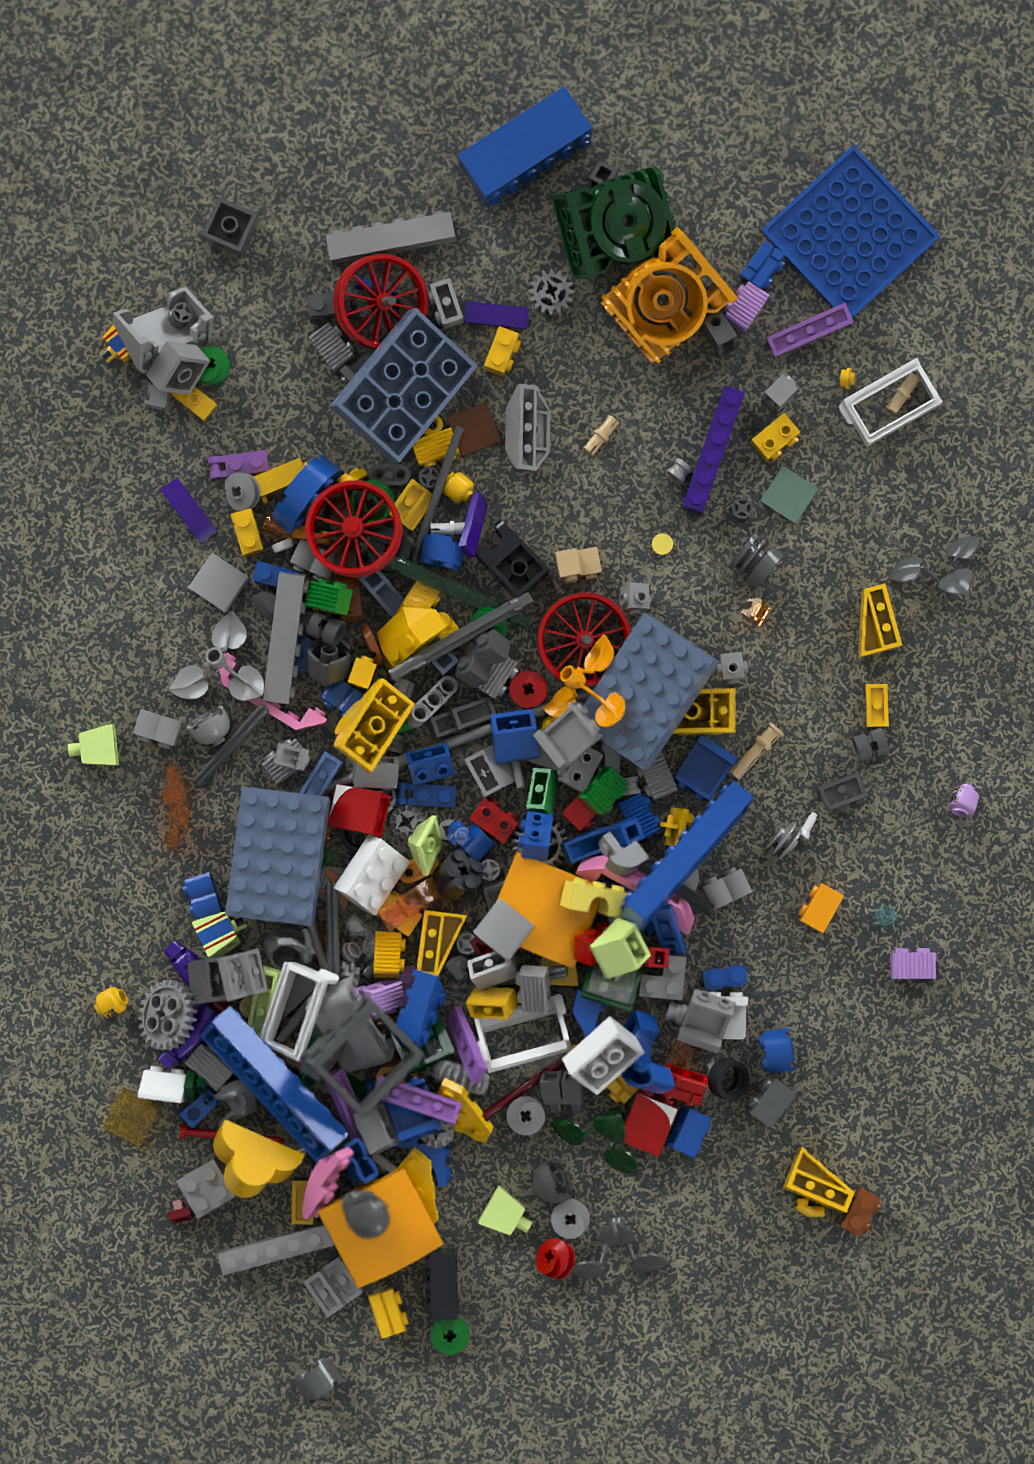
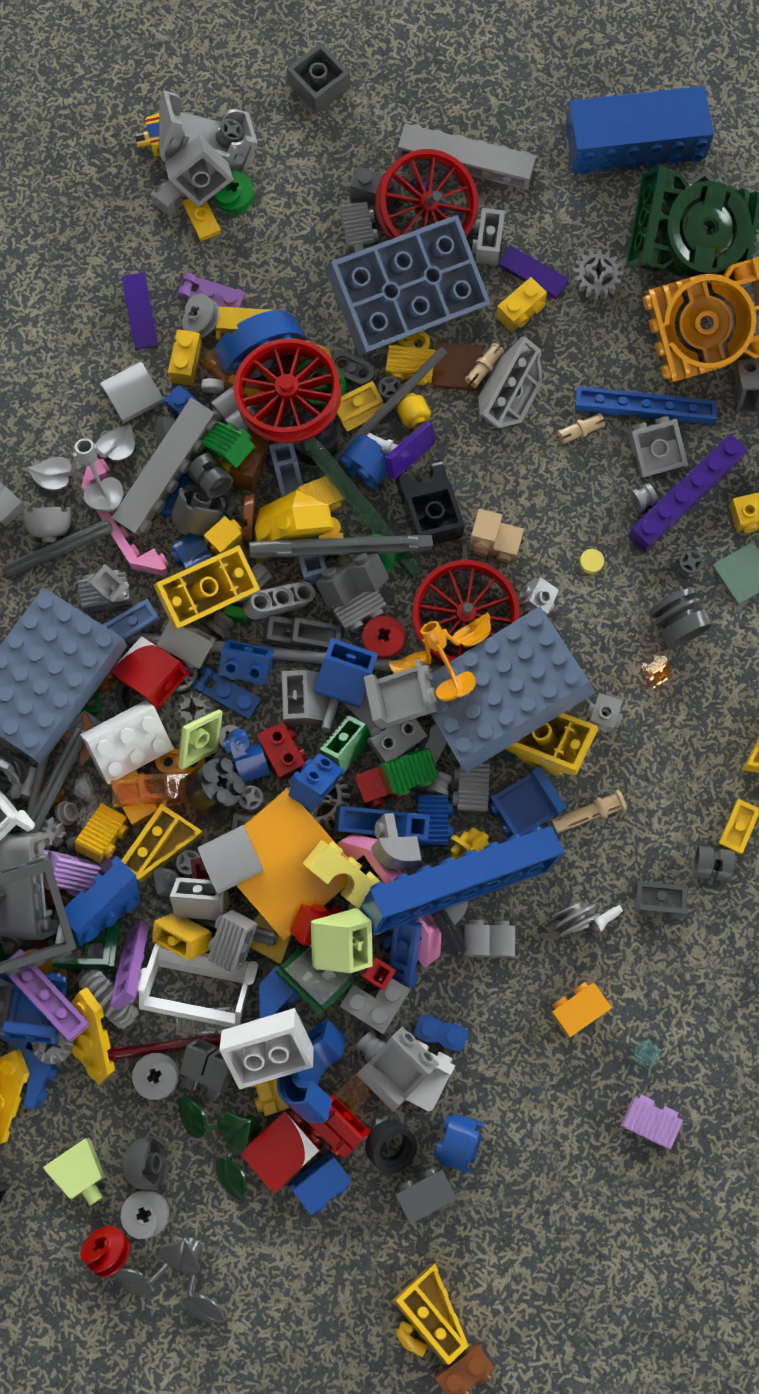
camera: 25 degrees right, 10 degrees down
(497, 420) = (484, 365): none -> tan pin
(644, 390) = (645, 405): none -> blue plate
(670, 421) = (657, 446): none -> light grey plate

